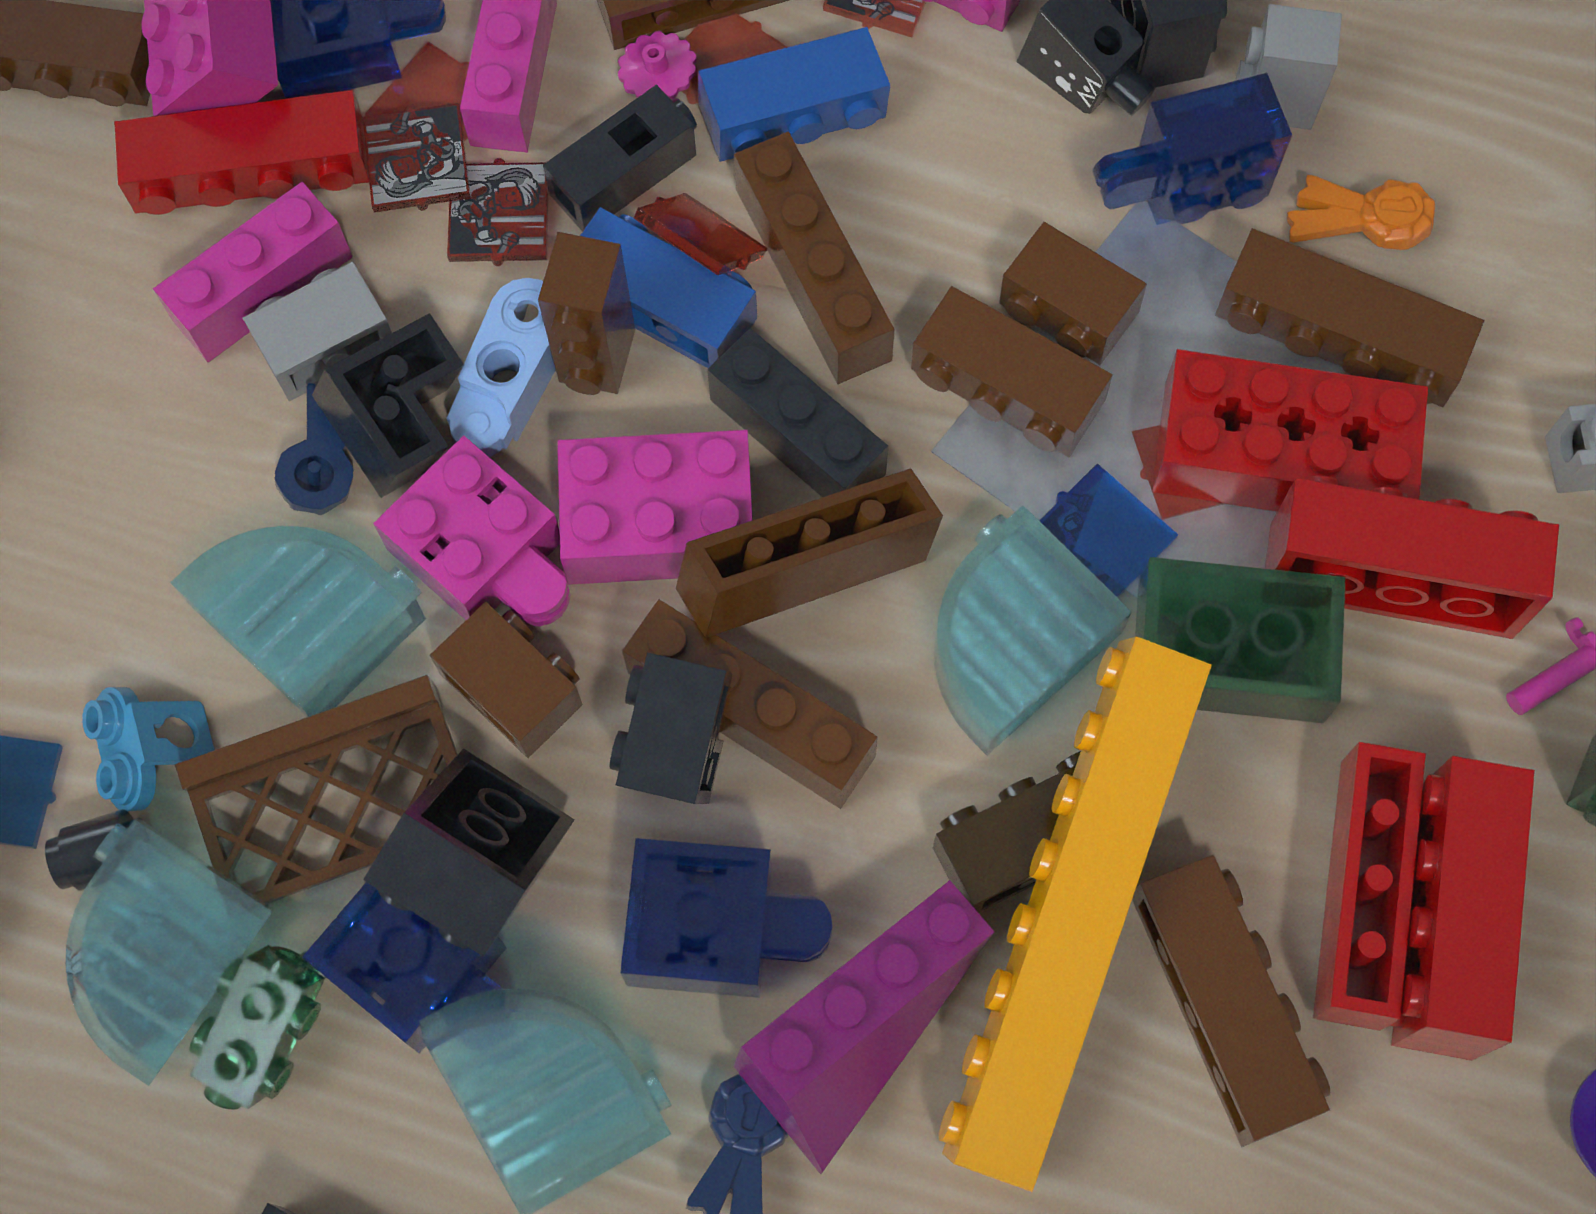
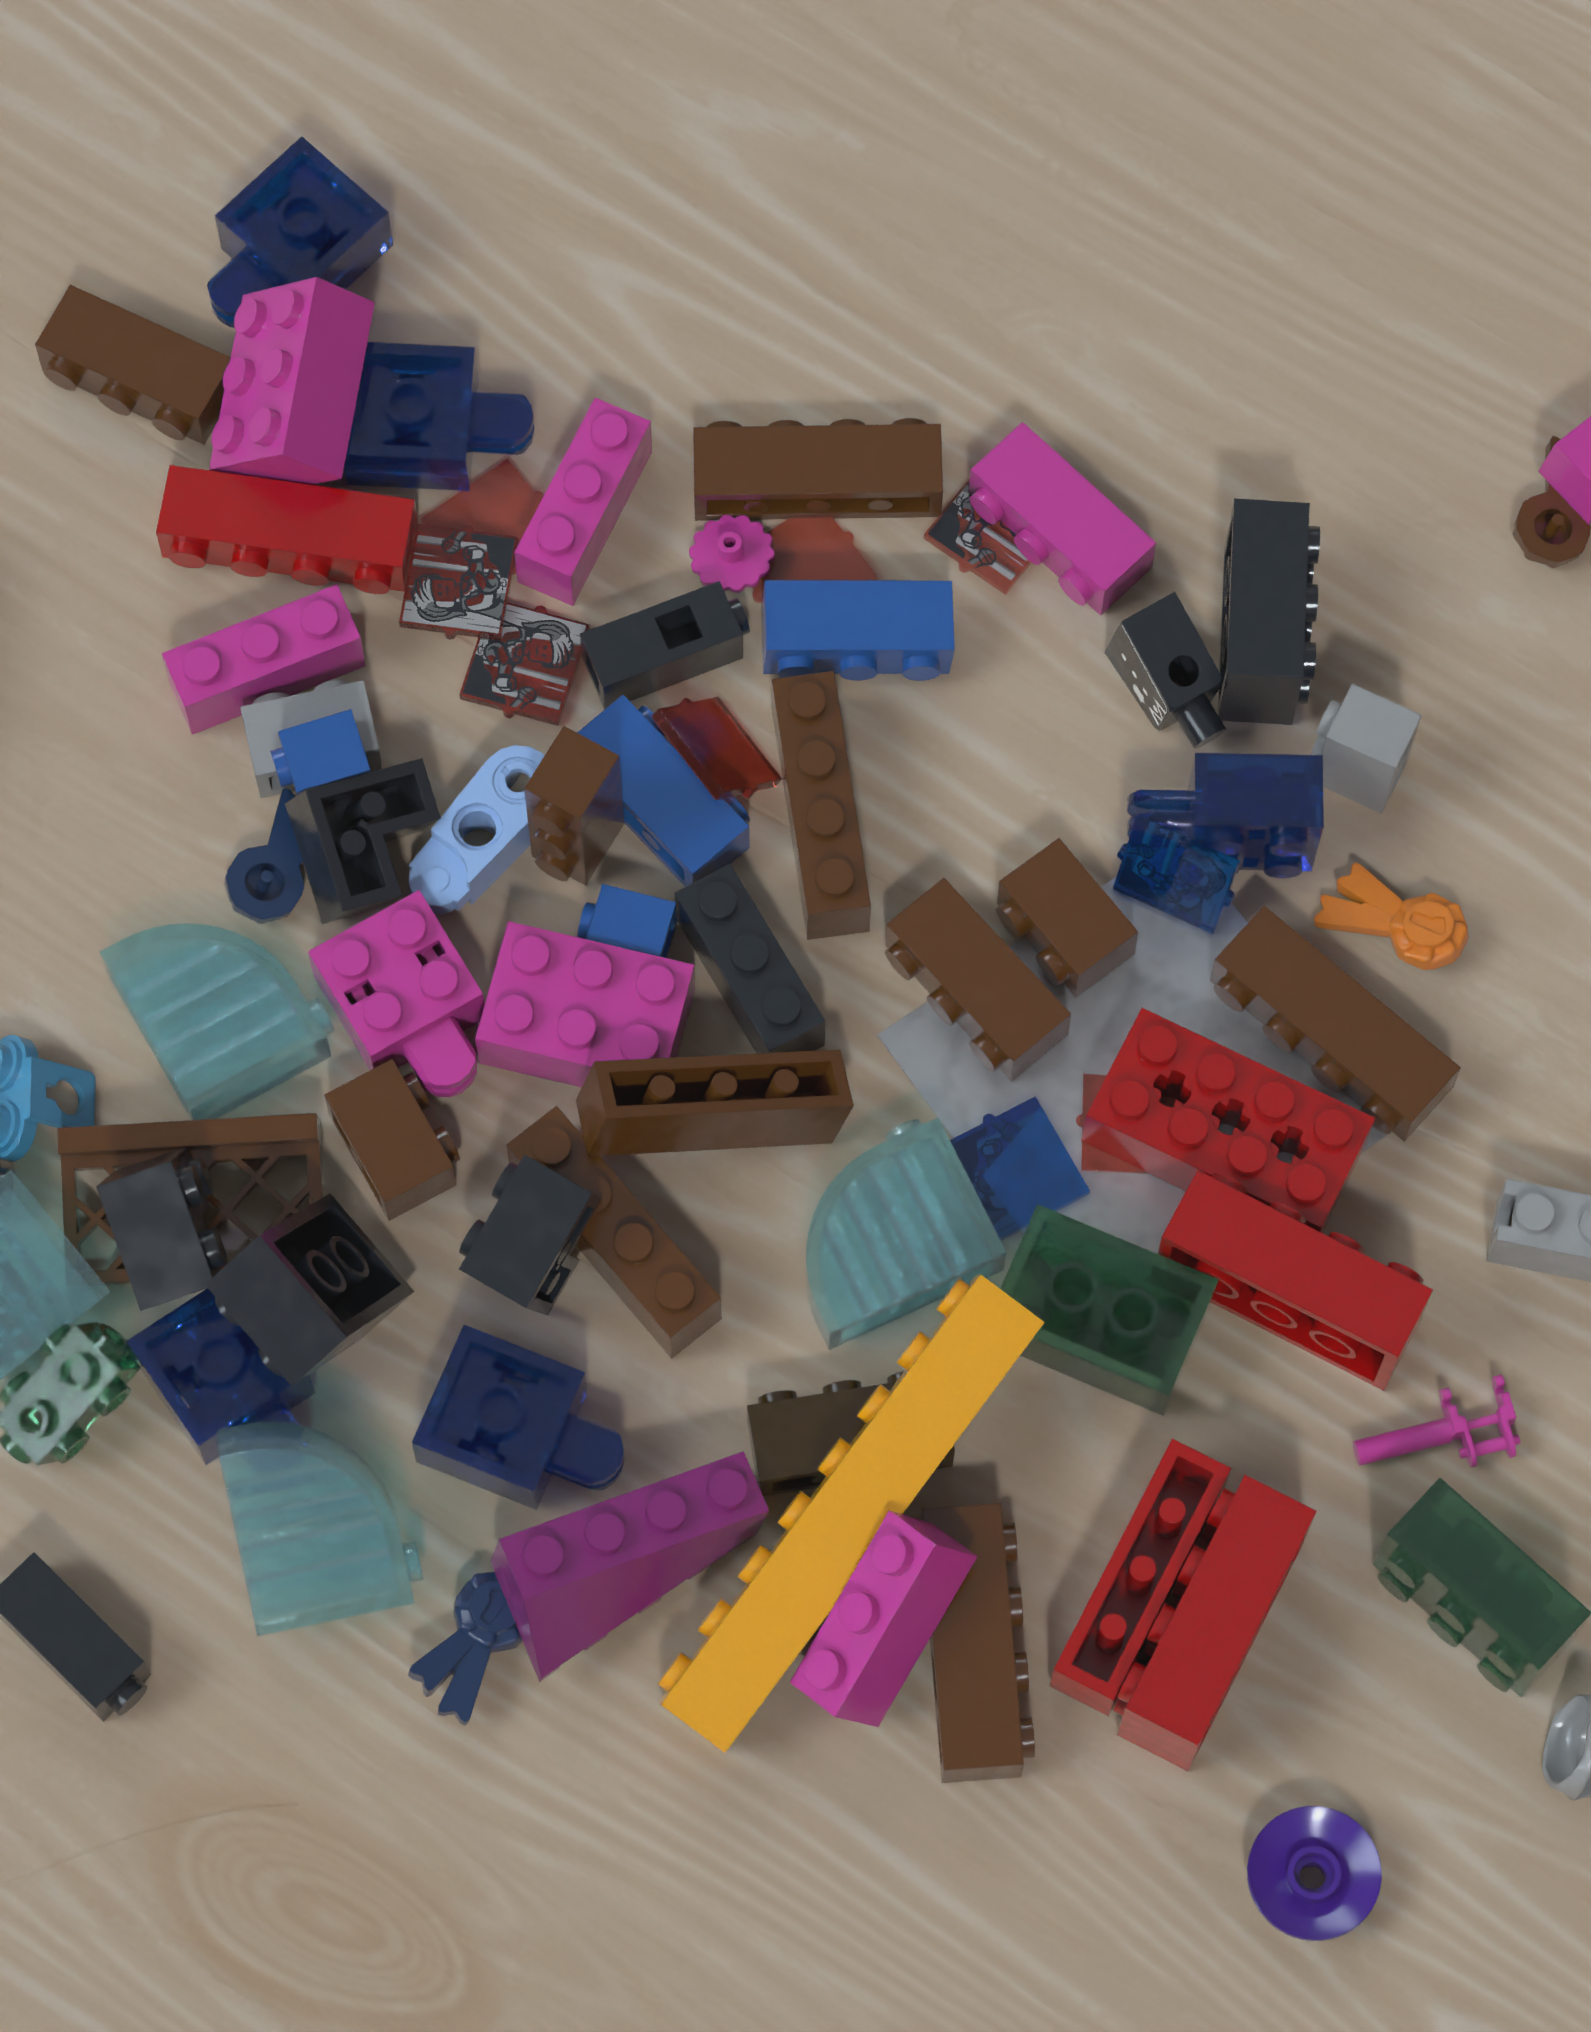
camera: 15 degrees right, 0 degrees up
(302, 834) = (160, 1226): none -> black brick
(329, 331) = (320, 752): none -> blue brick
(670, 408) = (629, 921): none -> blue brick
(1144, 1007) = (883, 1619): none -> dark pink brick
(1160, 224) = (1176, 874): none -> clear blue piece

